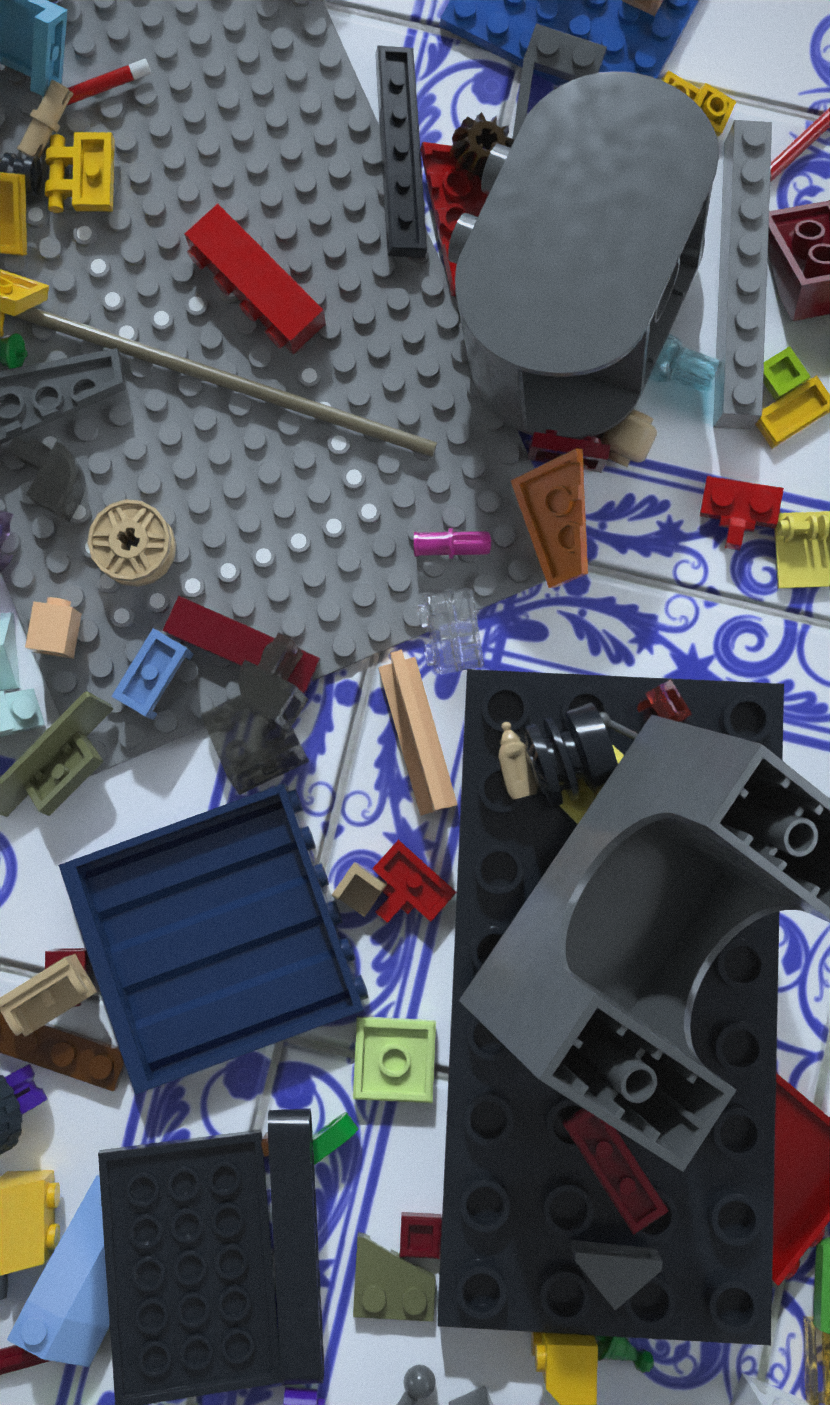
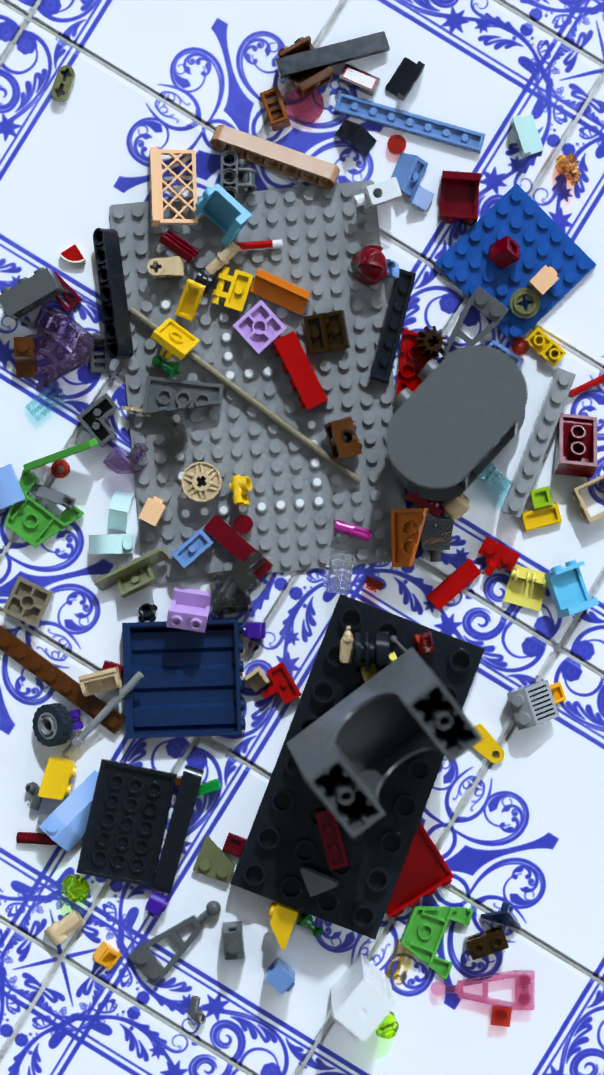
camera: 20 degrees right, 5 degrees up
(45, 1125) = (78, 740): none -> light grey bar
(105, 829) = (144, 609): none -> black plate
(151, 222) = (259, 327): none -> lavender piece
(172, 148) = (280, 291): none -> orange panel
(182, 796) = (189, 609): none -> lavender panel
(207, 533) = (239, 487): none -> yellow plate
(238, 599) = (243, 524): none -> dark red tile
(282, 197) = (326, 332): none -> dark brown slope
(324, 42) = (370, 265): none -> dark red helmet
(325, 796) = (255, 630): none -> dark purple plate
(366, 54) = (392, 269): none -> medium blue tile
(378, 396) = (338, 447): none -> reddish brown brick
(394, 1059) = (248, 761): yellowish green plate -> none
(417, 734) = (307, 616): light nougat fence -> none
(524, 633) = (373, 584): none -> clear red plate
(615, 507) = (436, 537): none -> torso
(635, 16) = (530, 296): none -> olive gear
(675, 587) = (453, 584): none -> red tile

